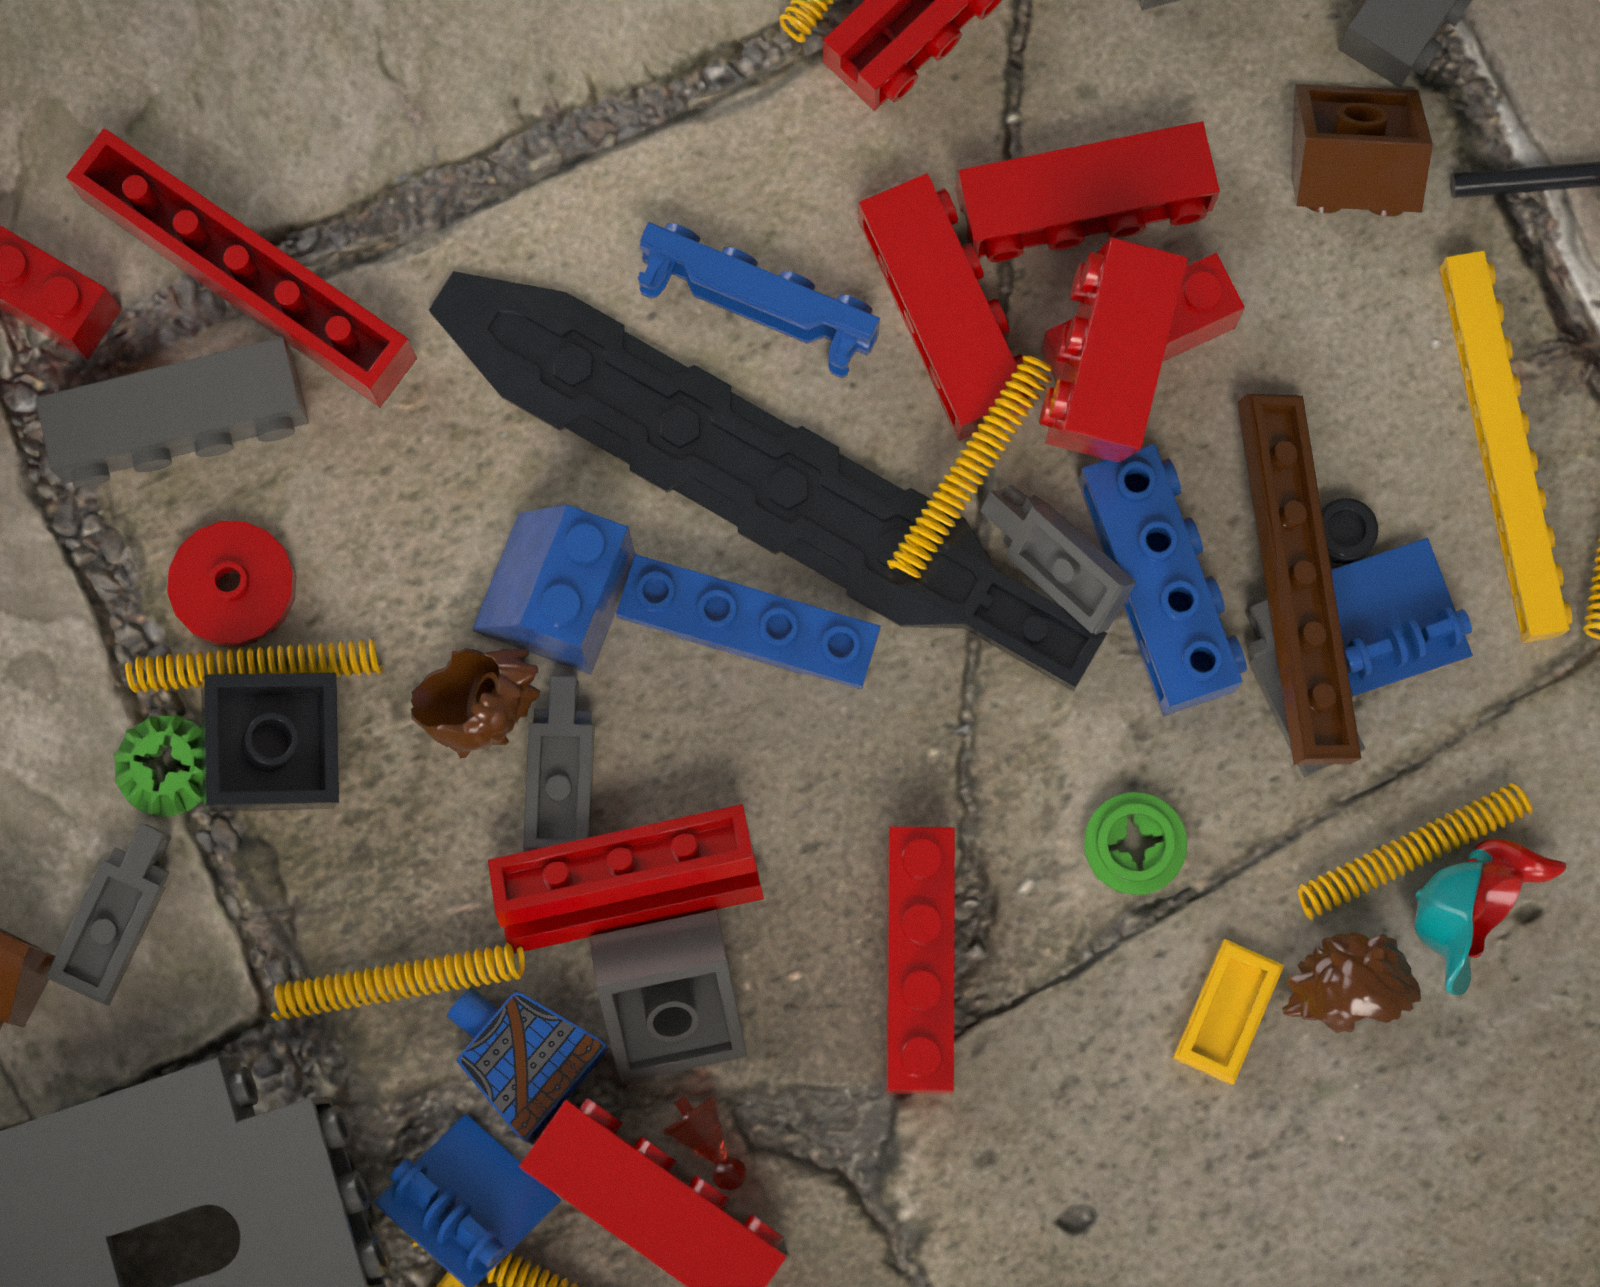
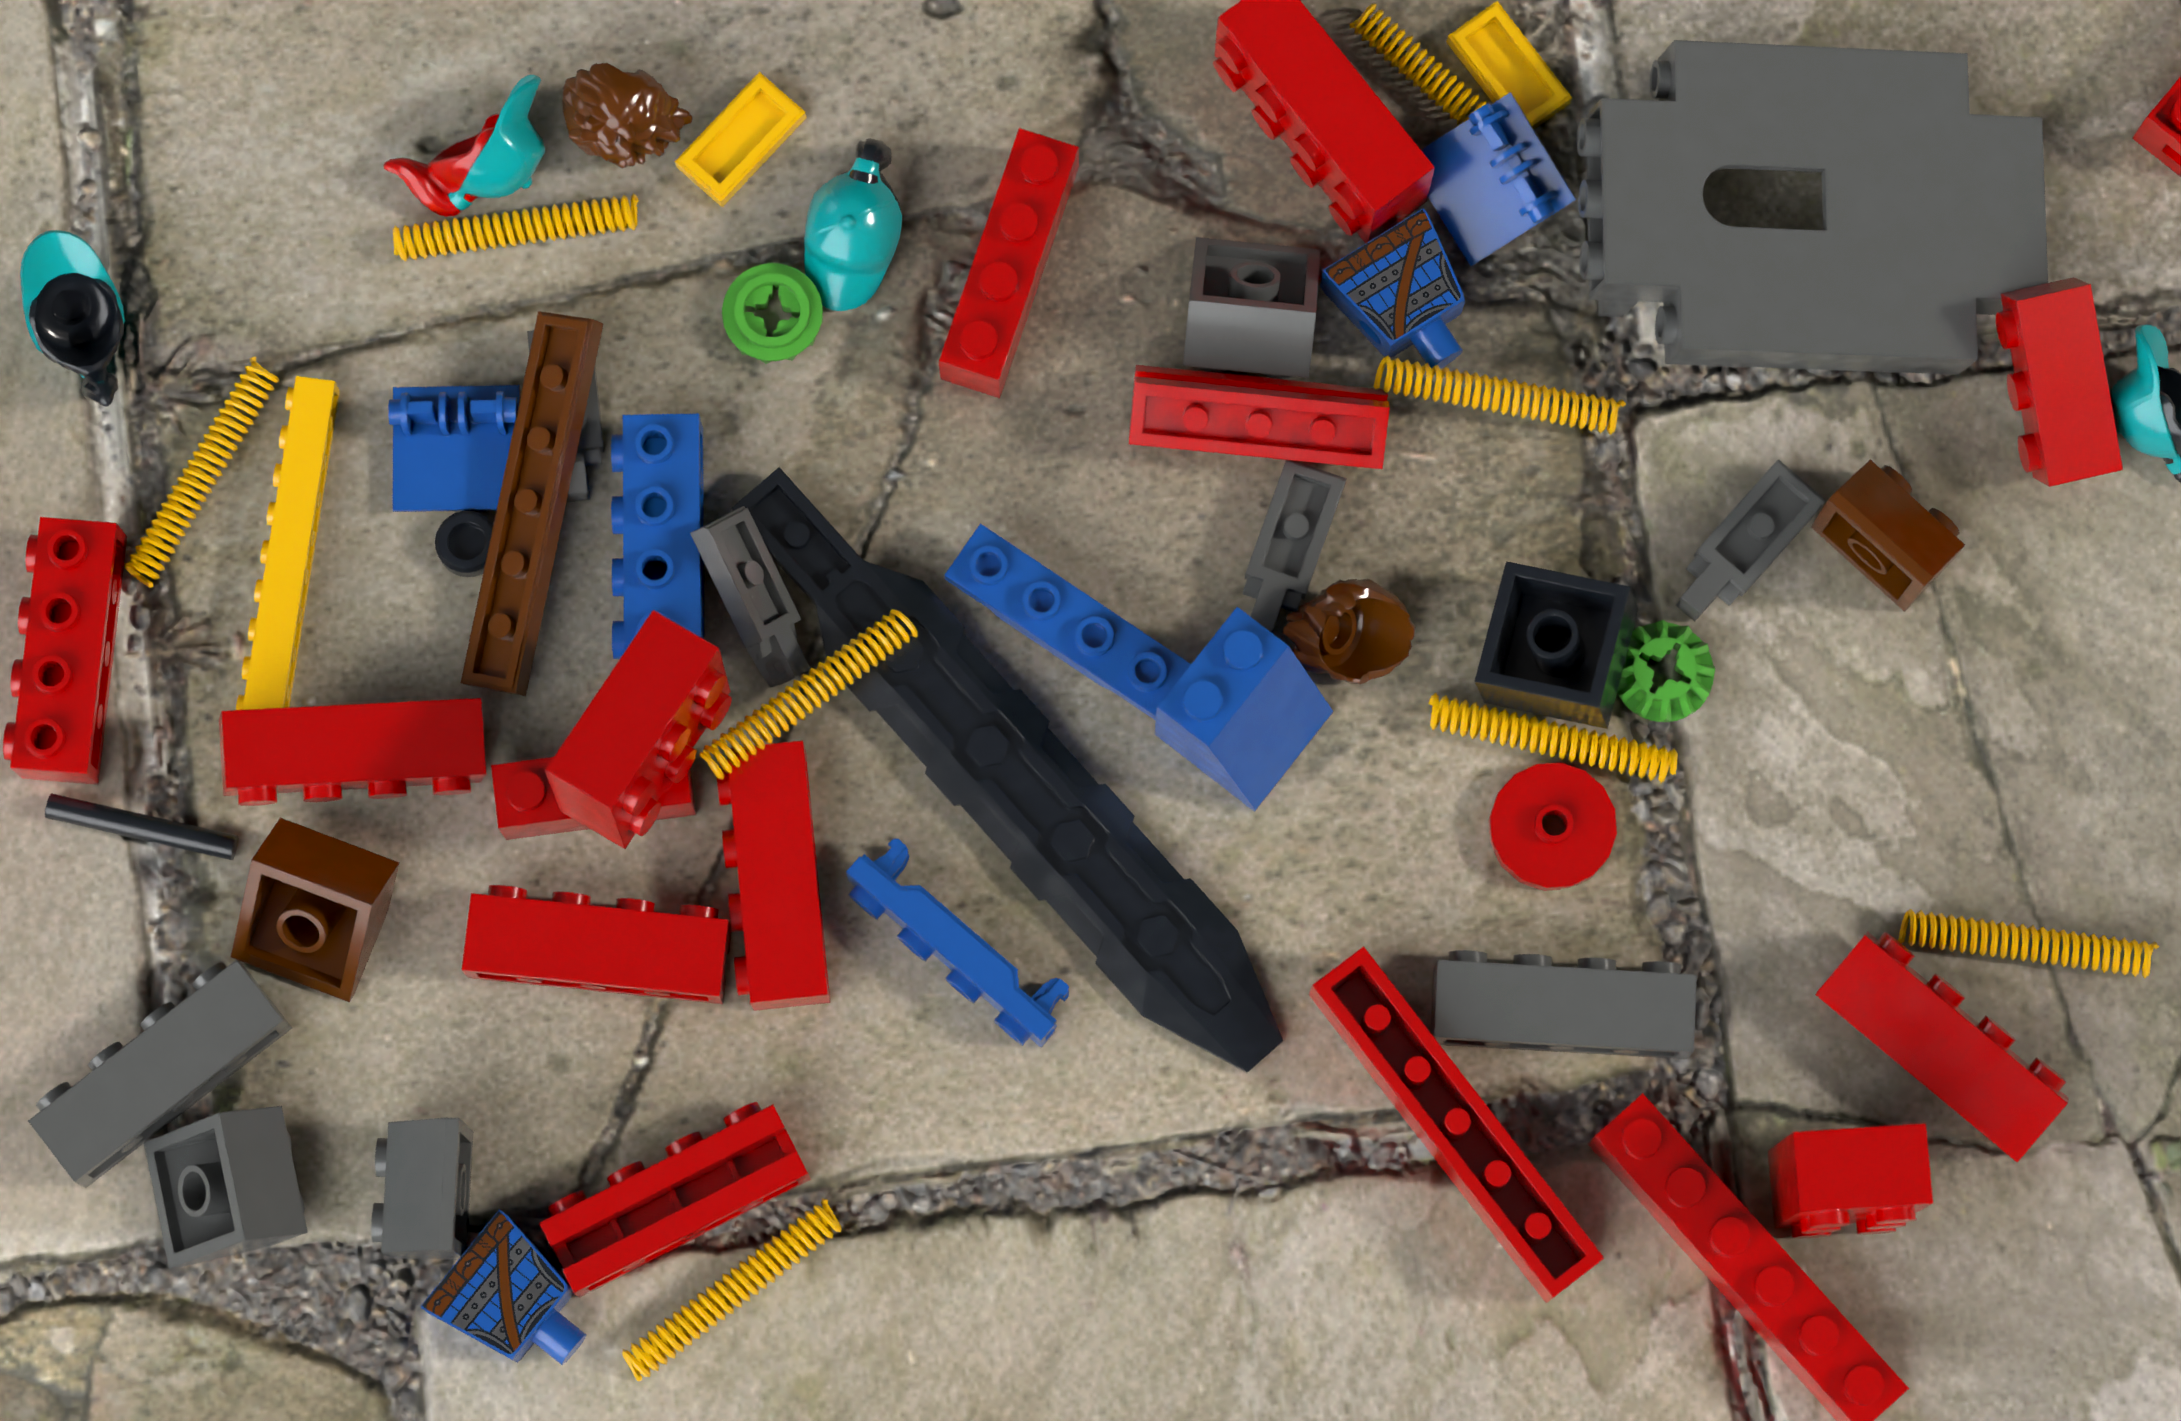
camera: 165 degrees left, 0 degrees up
(702, 1133) = (1259, 181): clear red piece -> none
(1085, 953) = (853, 230): none -> teal hair
(1381, 288) = (352, 748): none -> red brick

